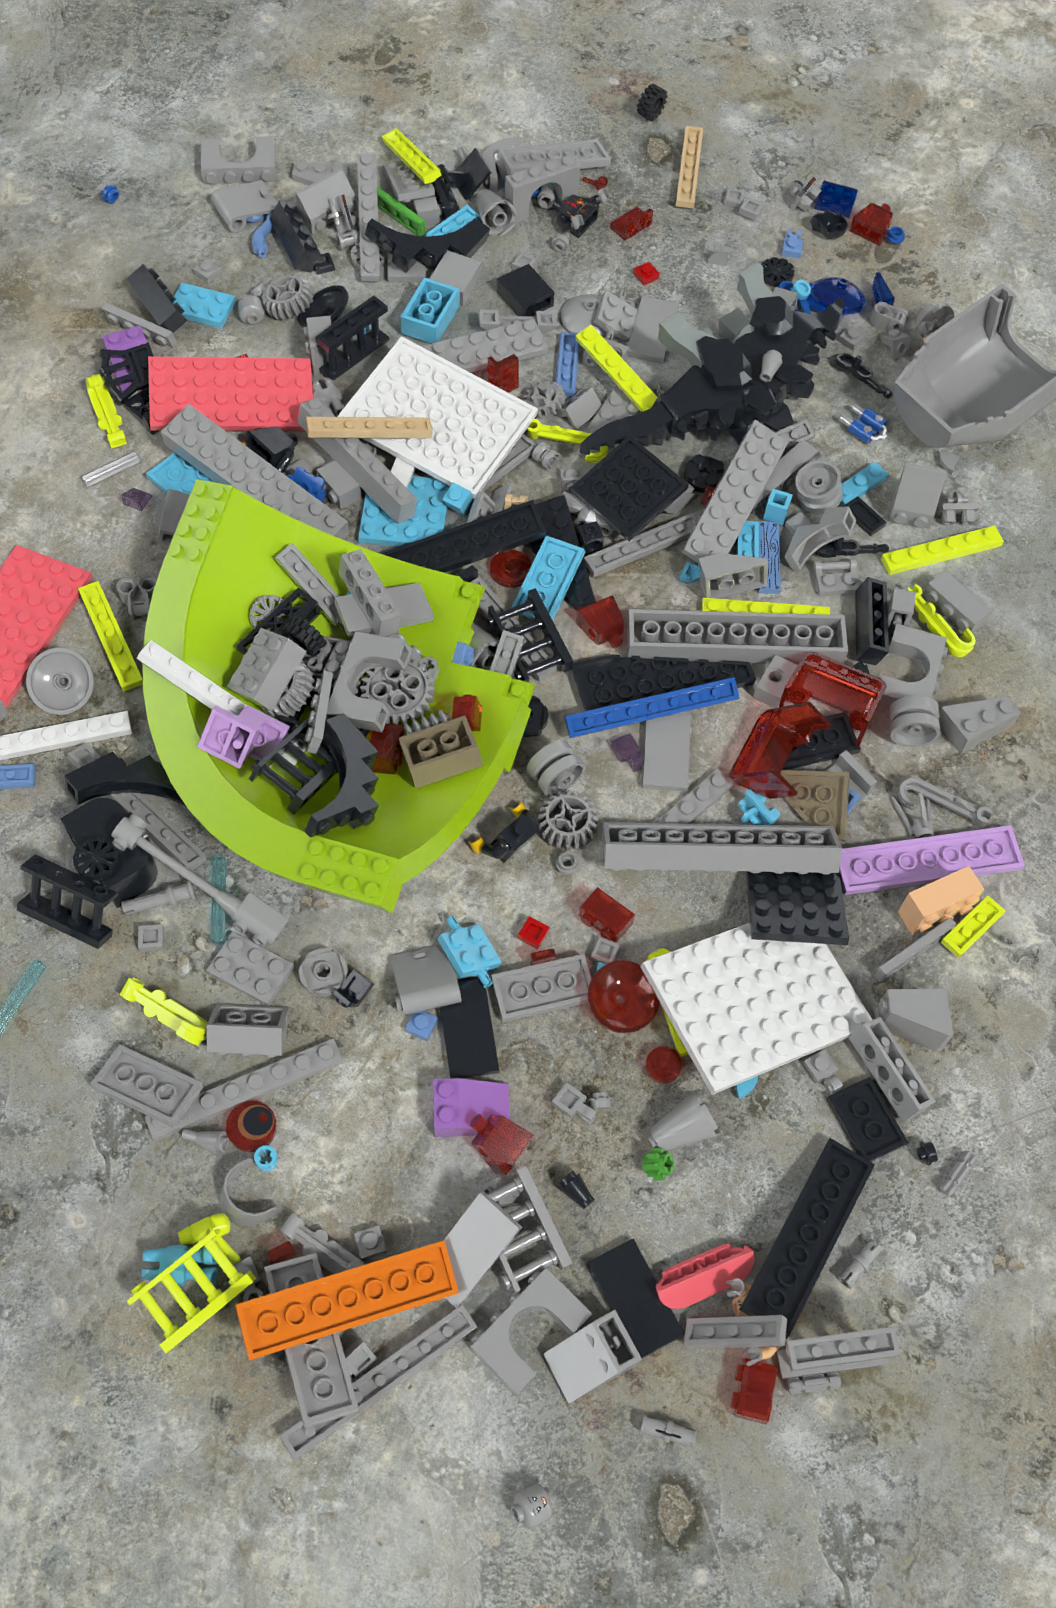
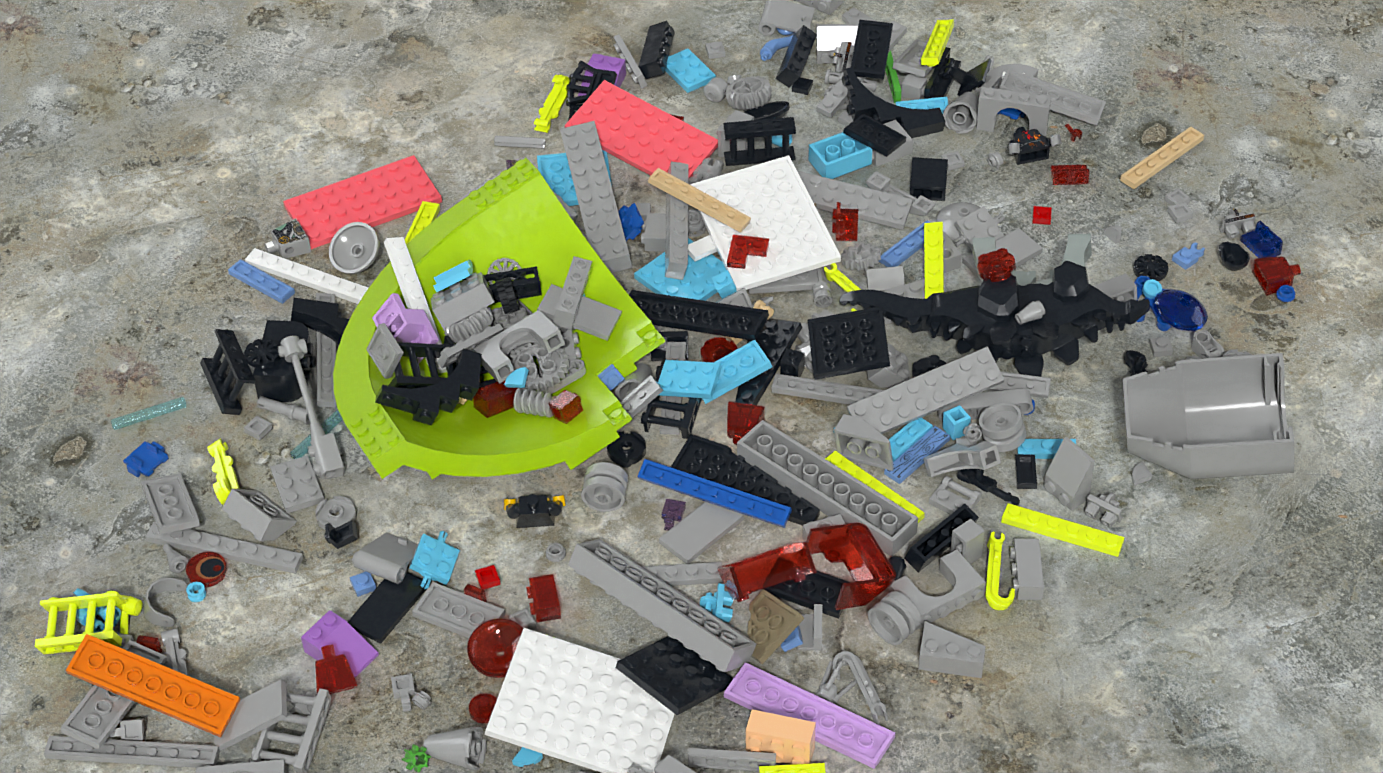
camera: 45 degrees right, 15 degrees down
(62, 1054) = (145, 459): none -> blue piece
(235, 649) = (453, 275): none -> medium azure slope
(260, 775) = (384, 351): none -> light grey tile
(272, 446) = (632, 184): black torso -> none
(309, 581) = (548, 261): light grey plate -> none
(368, 190) = (871, 49): none -> black plate
(370, 1243) = (207, 675): light grey plate -> none
(397, 715) = (517, 378): none -> medium azure tile
(440, 751) = (521, 416): dark tan brick -> none
(446, 452) = (743, 246): none -> clear red plate
(449, 274) = (875, 135): none -> black tile
(533, 610) = (689, 378): none -> medium azure plate
(546, 196) = (1018, 121): light grey cone -> none
(574, 809) = (582, 521): light grey gear -> none
(576, 1189) = (352, 736): black cone -> none
(652, 102) = (1175, 89): black tyre -> none
(702, 327) = (988, 261): none -> clear red plate
(798, 507) = (976, 435): none -> light grey plate
(867, 425) = (1091, 414): blue piece -> none
(881, 290) = (1219, 327): clear blue slope -> none

